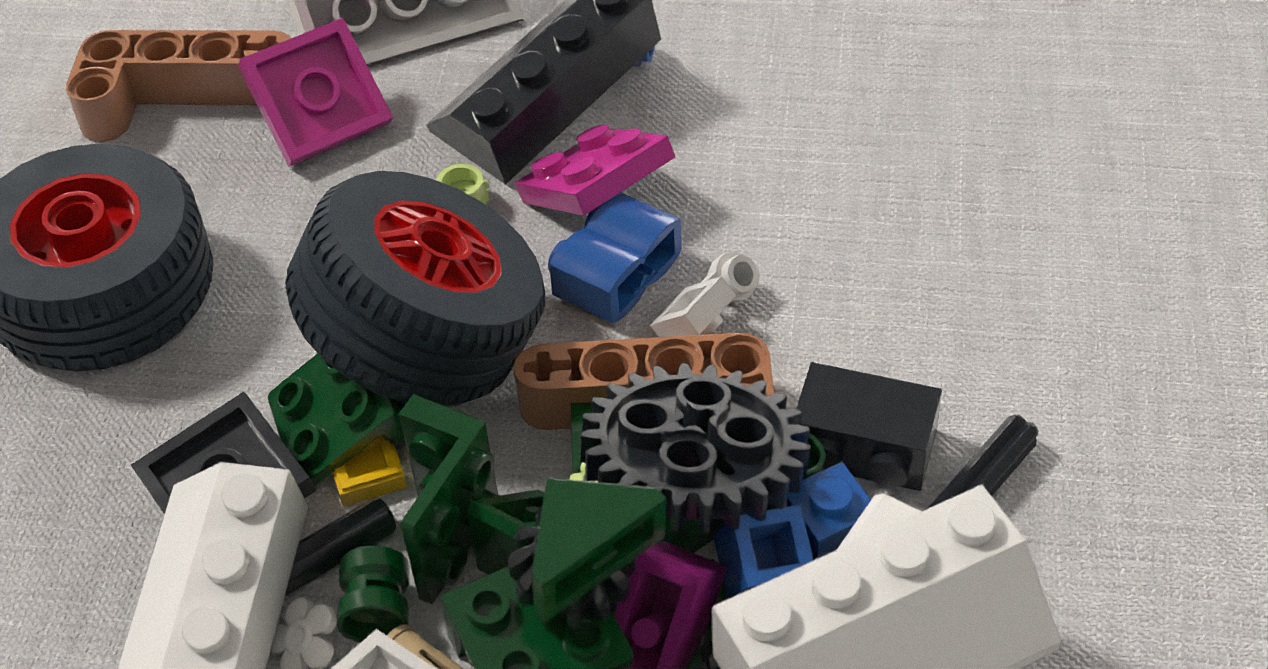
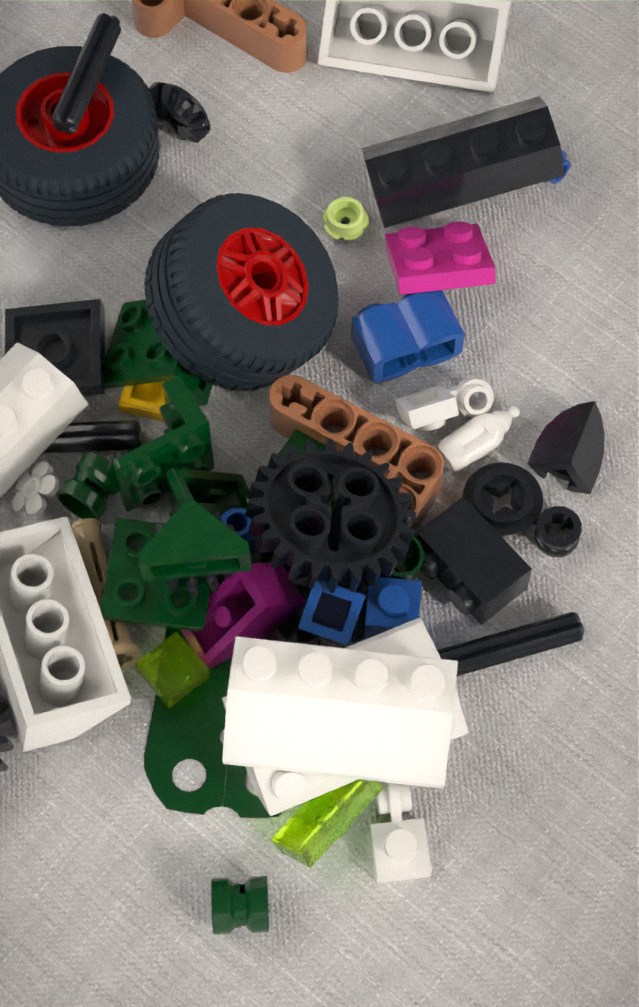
camera: 30 degrees right, 15 degrees up
(78, 169) = (86, 74): none -> black axle
(209, 163) = (179, 112): none -> black gear
(315, 91) = (296, 83): dark pink plate -> none
(768, 309) = (475, 438): none -> white piece
(865, 341) = (497, 480): none -> black gear
(870, 271) = (571, 447): none -> black brick
(924, 338) = (568, 520): none -> black bush

